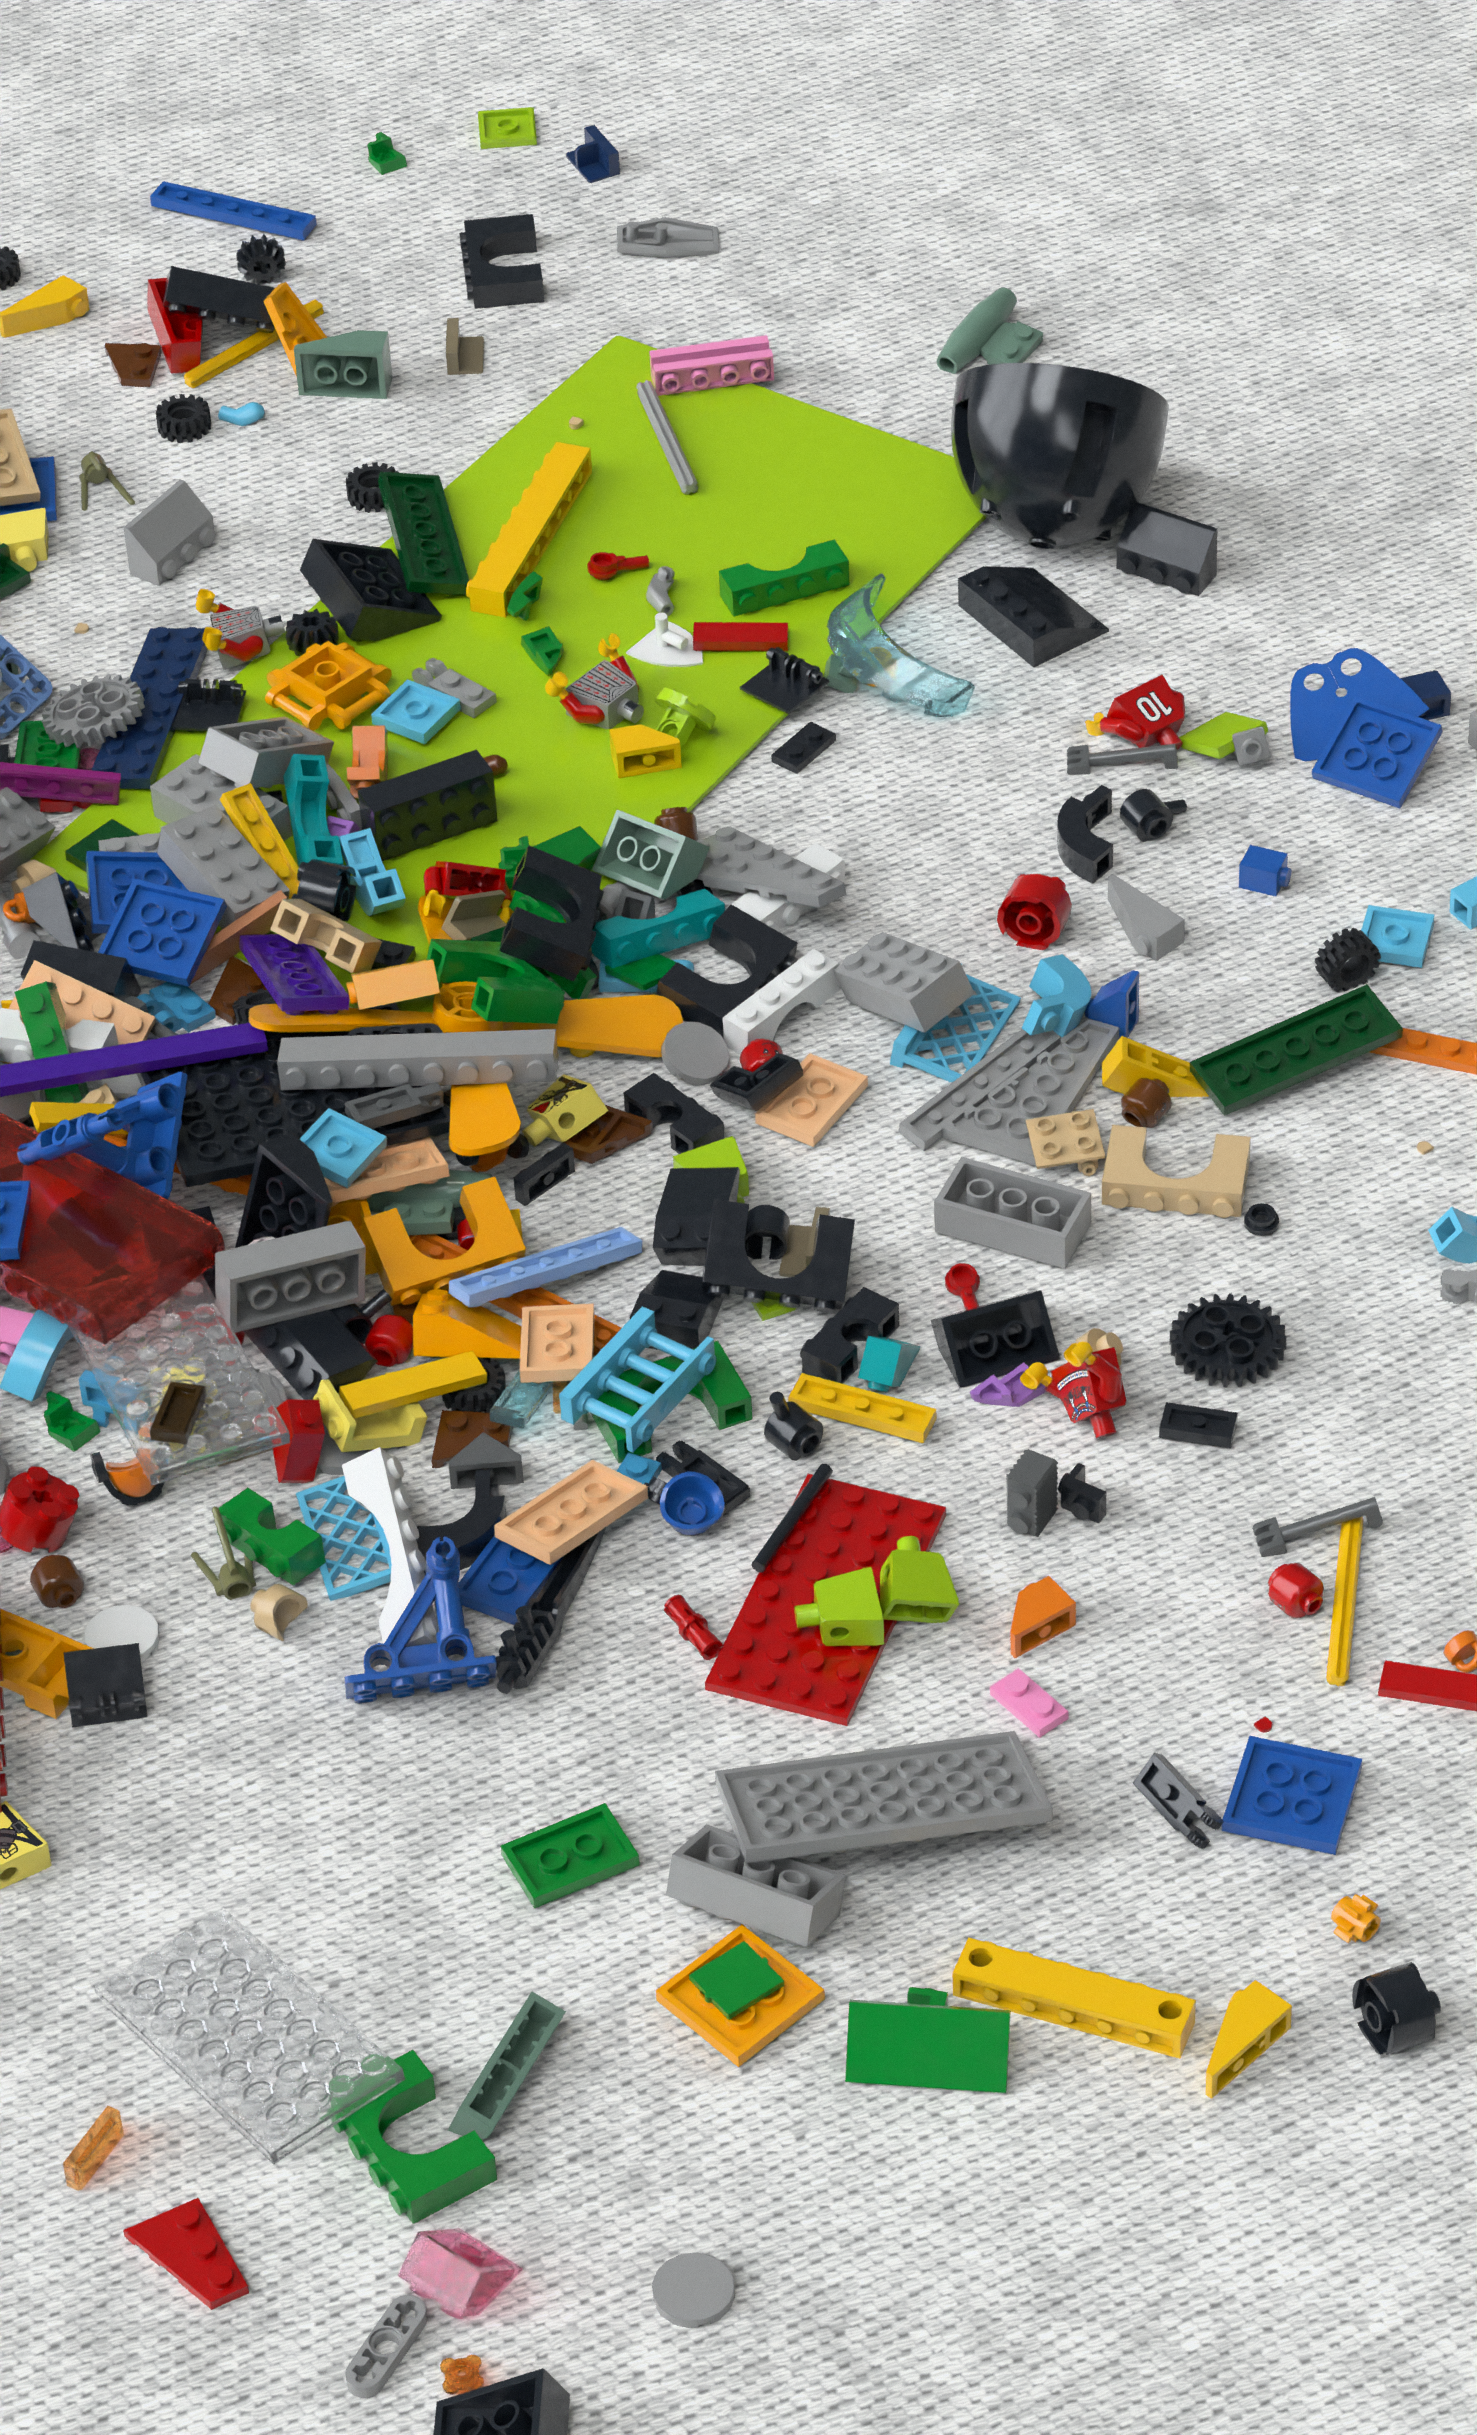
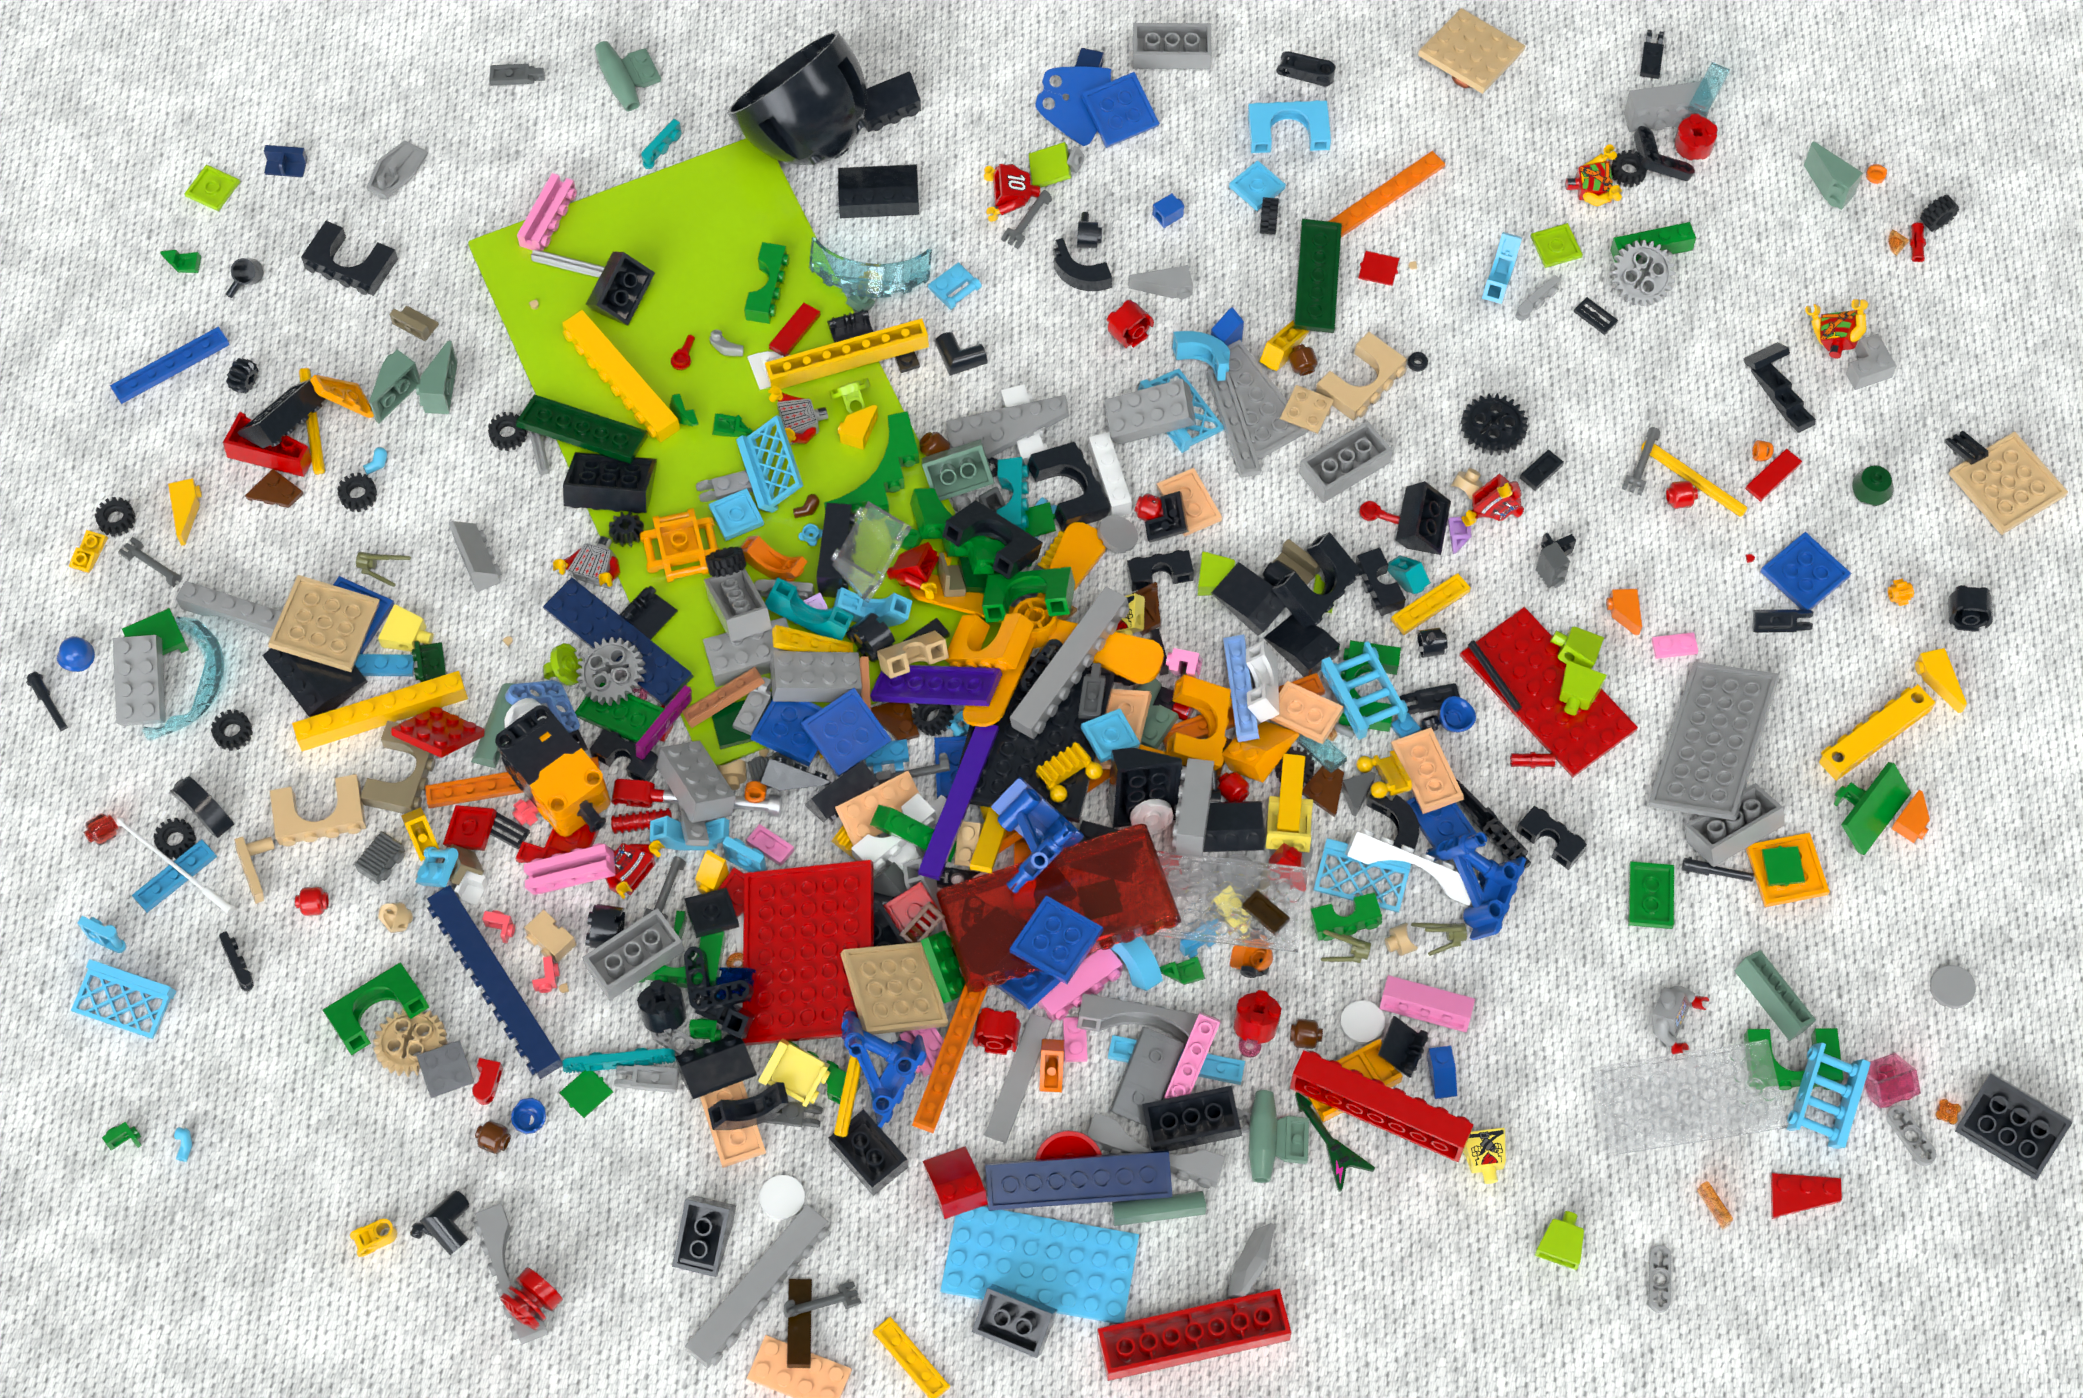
camera: 60 degrees left, 20 degrees up
(71, 665) = (563, 665): none -> lime tile
(99, 1747) = (1442, 1072): none -> blue slope
(124, 813) = (723, 697): none -> nougat tile
(195, 1680) = (1427, 1003): none -> bright pink brick
(244, 1125) = (1063, 767): none -> yellow gear
(326, 721) = (725, 561): none -> black tyre
(334, 1664) = (1454, 932): none -> olive plant
(367, 528) = (539, 452): none -> light grey axle
(379, 1952) = (1670, 1014): none -> light grey torso
(390, 395) = (438, 382): none -> sand green slope
(393, 2219) = (1850, 1095): none -> medium azure fence
(406, 196) = (244, 272): none -> black piece
(434, 823) = (869, 549): none -> clear windscreen
(498, 695) = (758, 472): none -> medium azure fence
(519, 1178) = (1181, 658): none -> bright pink brick
(527, 1480) = (1391, 772): none -> yellow gear
(550, 808) = (888, 476): none -> green arch
(574, 1724) = (1539, 824): none -> black arch
(600, 1272) = (1263, 664): none -> white arch
(653, 463) = (620, 288): none -> black slope
(656, 1879) = (1706, 868): none -> black pin
(736, 685) = (847, 354): none -> yellow brick
(843, 795) = (957, 359): none -> black brick
(897, 258) = (515, 74): none -> dark grey hinge
(910, 408) = (661, 143): none -> teal plate
(950, 743) = (952, 280): none -> medium azure plate
(956, 2106) = (1913, 819): none -> orange slope
(1384, 1116) = (1378, 268): none -> red piece

